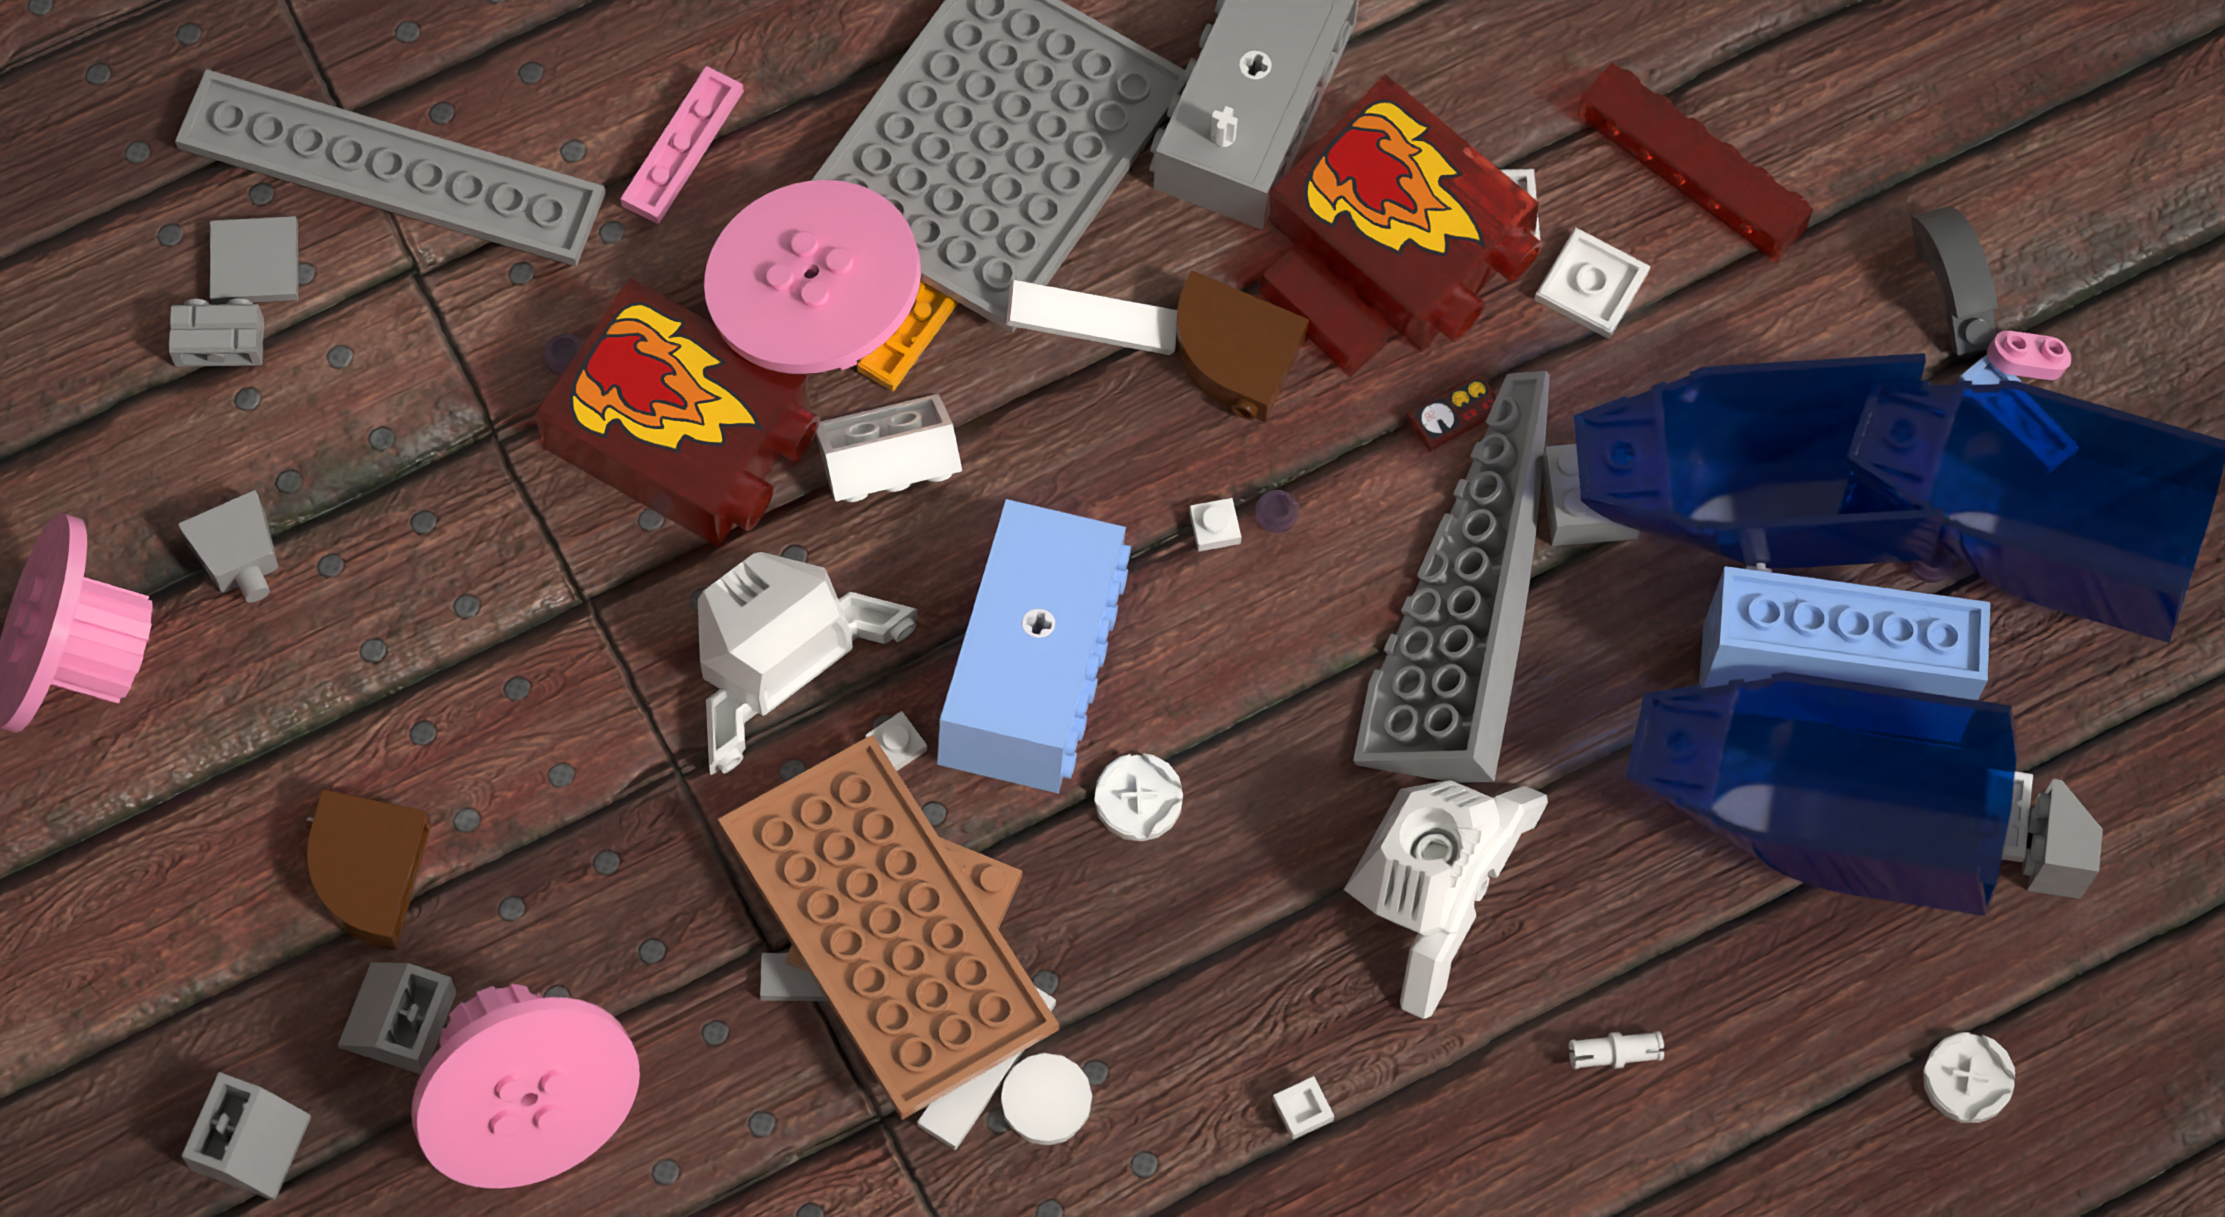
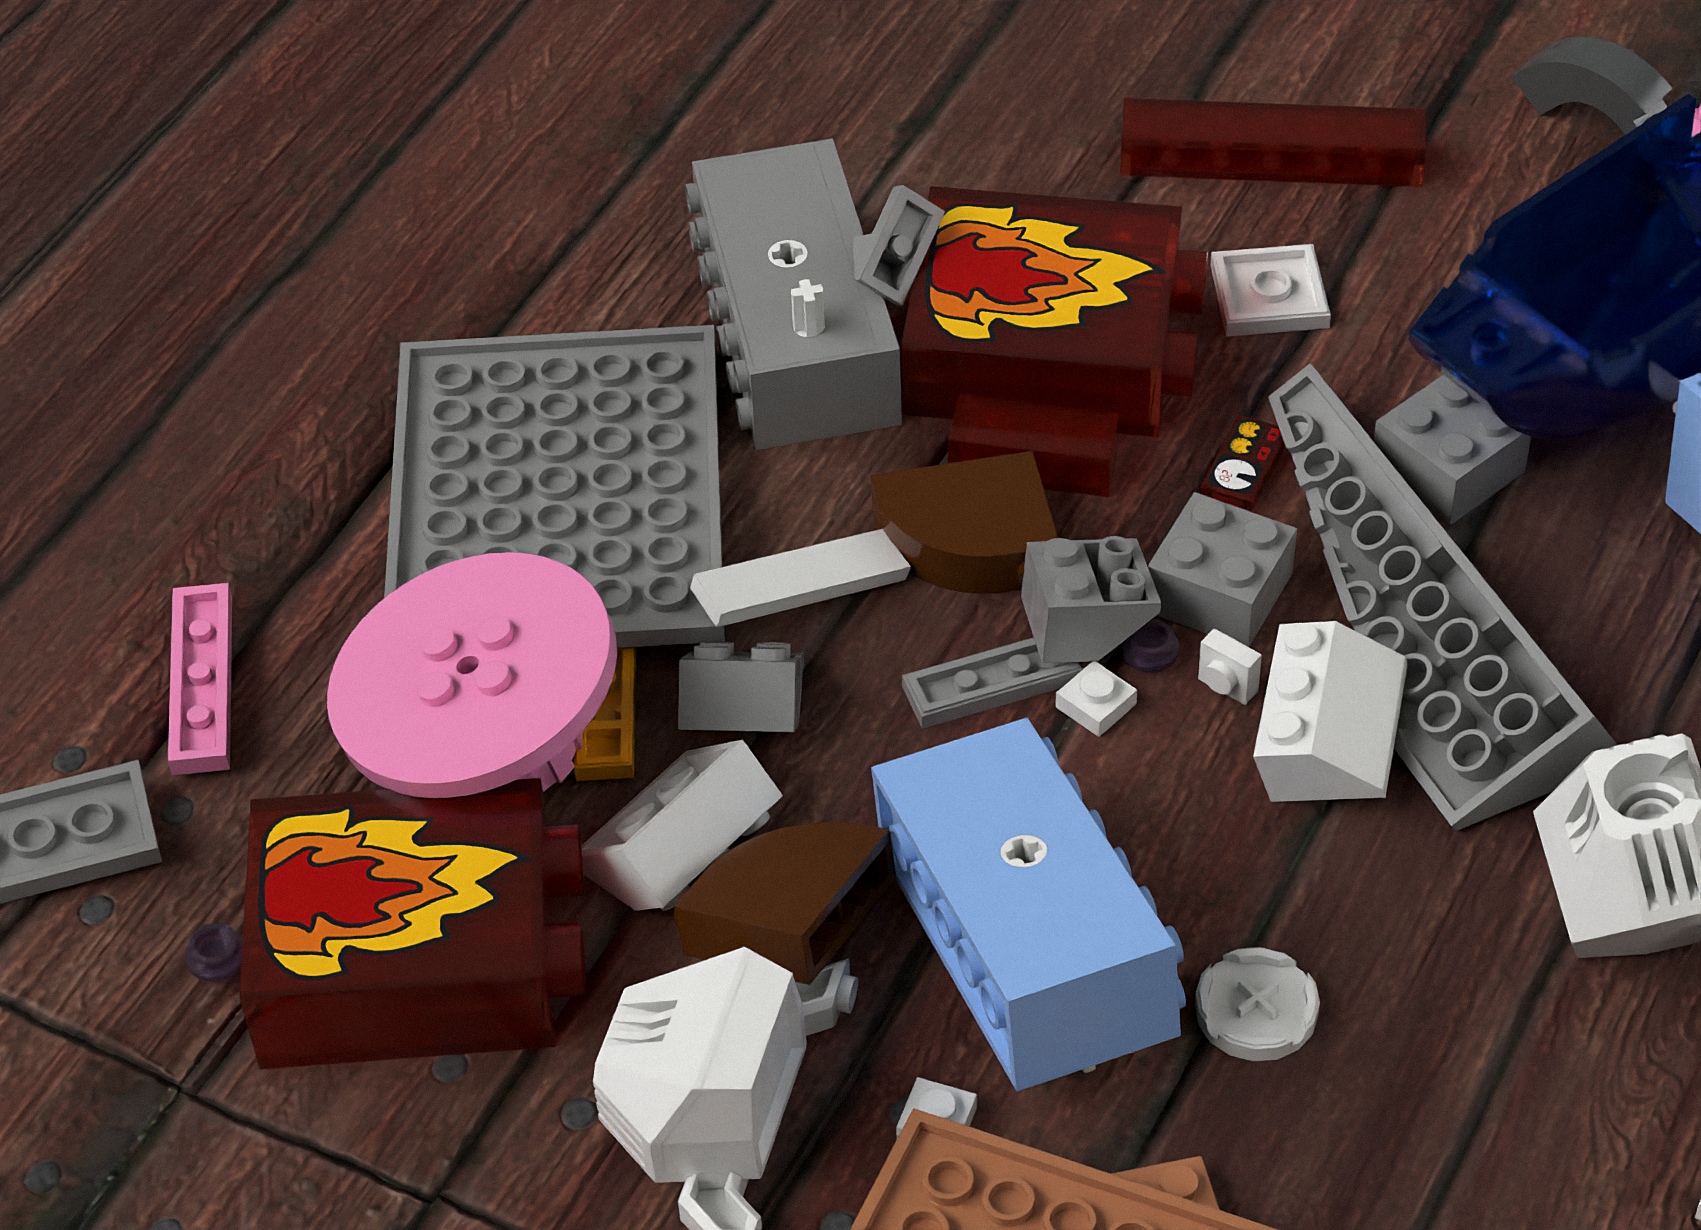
camera: 30 degrees left, 20 degrees down
(909, 545) = (788, 895): none -> reddish brown brick
(998, 374) = (740, 688): none -> light grey slope
(1163, 466) = (983, 682): none -> light grey tile
(1256, 452) = (1086, 596): none -> light grey slope
(1307, 560) = (1229, 666): none -> white plate
(1318, 113) = (895, 249): none -> light grey slope
(1337, 637) = (1329, 714): none -> white slope
(1362, 486) = (1222, 568): none -> light grey brick

